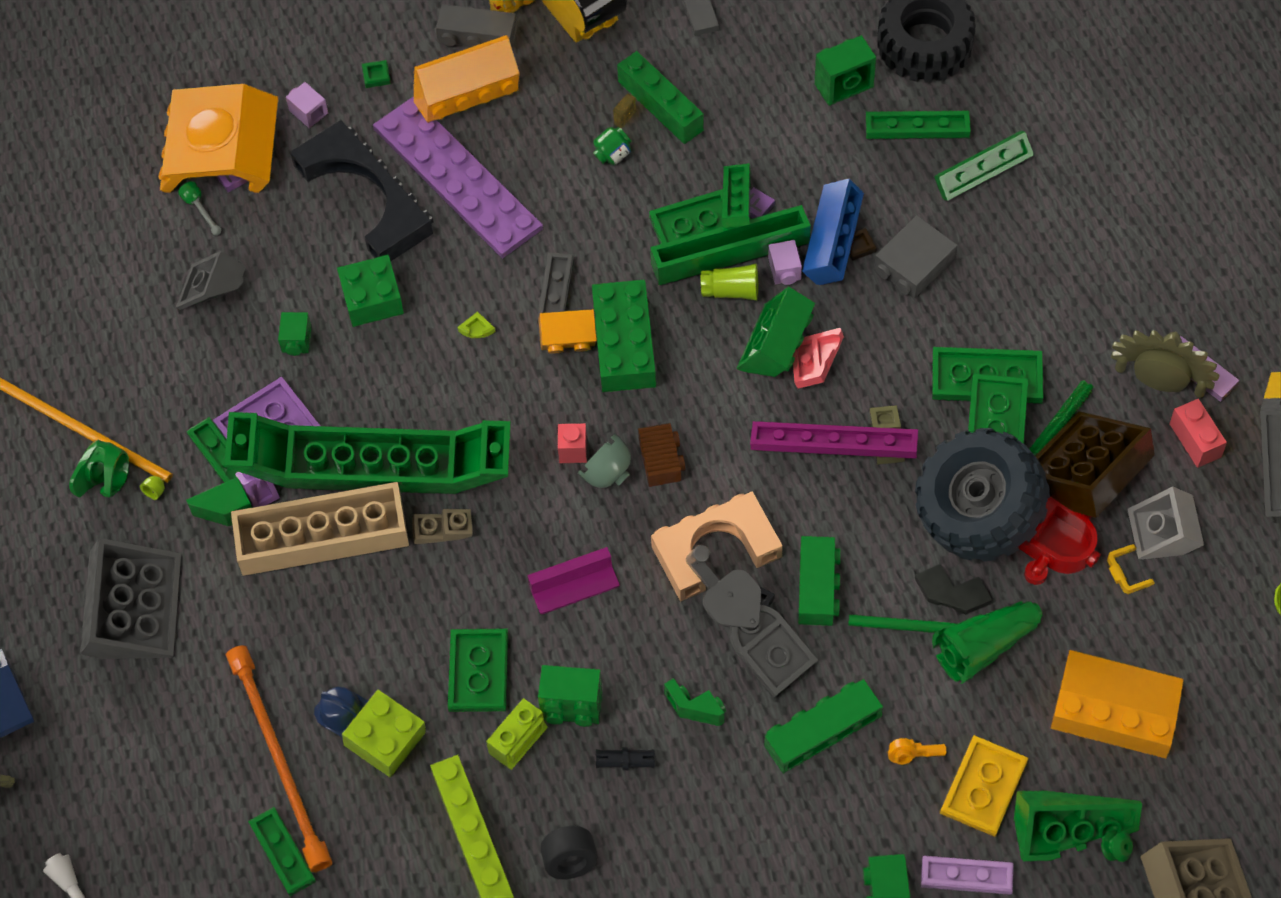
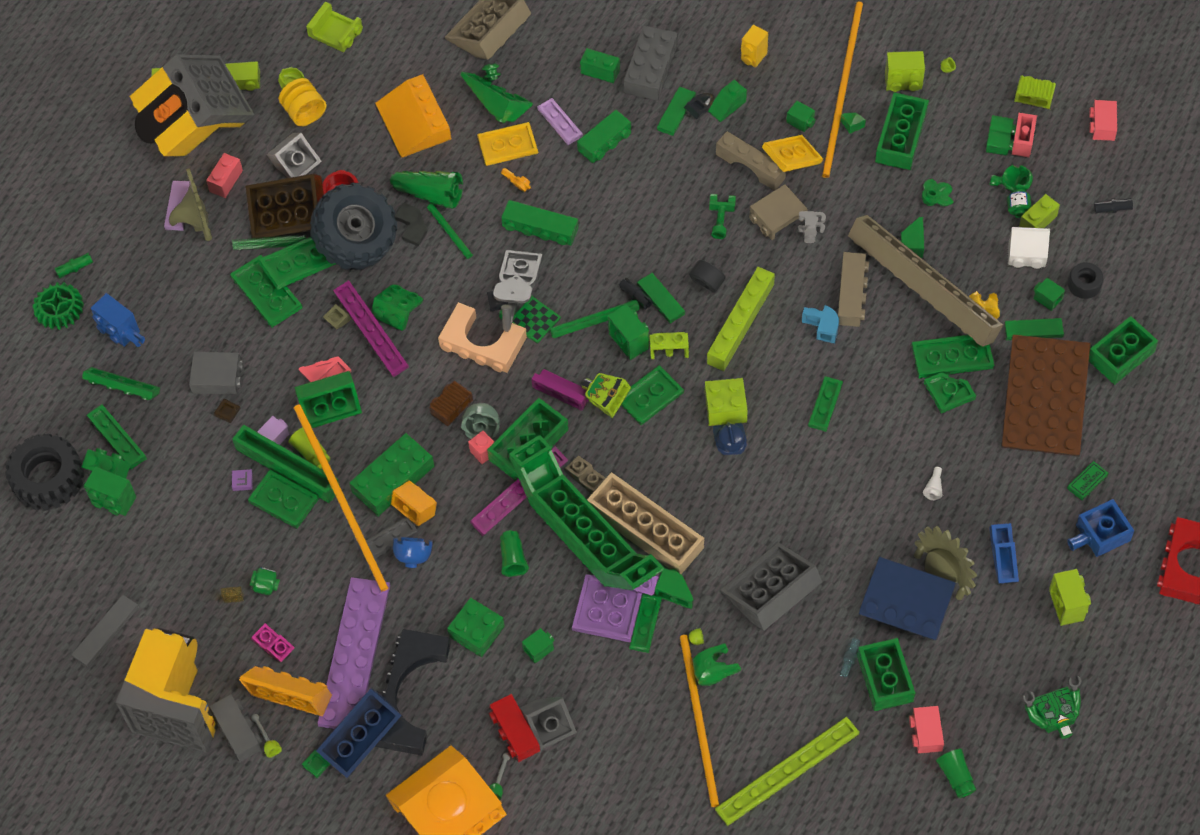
camera: 130 degrees left, 0 degrees up
(250, 250) = (514, 728): none -> red brick
(306, 104) = (375, 778): lavender brick -> none
(315, 850) = (753, 501): orange hose -> none
(360, 110) = (359, 732): none -> dark blue slope
(417, 381) = (512, 555): none -> green plant
(429, 47) = (271, 747): none -> lime hinge
(476, 327) = (448, 559): lime tile -> none
(485, 406) = (506, 502): none -> magenta plate
(515, 291) = (412, 551): none -> blue cylinder
(518, 614) = (606, 392): none -> lime torso
(533, 117) = (272, 643): none -> dark pink slope
(537, 492) = (535, 421): none -> green brick
(594, 785) = (661, 298): none -> green tile
(634, 688) = (588, 321): none -> green axle
(636, 255) = (341, 498): none -> light orange piece
(660, 97) = (207, 581): green brick -> none
(691, 627) = (535, 318): none -> green flag
(701, 708) = (579, 280): green slope -> none
(736, 196) = (250, 480): green plate -> none
(818, 581) = (461, 280): green brick -> none
(833, 232) = (228, 423): blue brick -> none
(846, 492) = (394, 306): none -> green bracket
(882, 87) = (109, 463): none -> green brick
(1065, 197) = (116, 321): none -> blue brick
(1118, 574) = (338, 163): yellow piece -> none
(1142, 158) = (64, 312): none -> green gear
(1194, 215) = (73, 265): none -> green pin
(1236, 580) = (302, 102): none -> yellow wheel

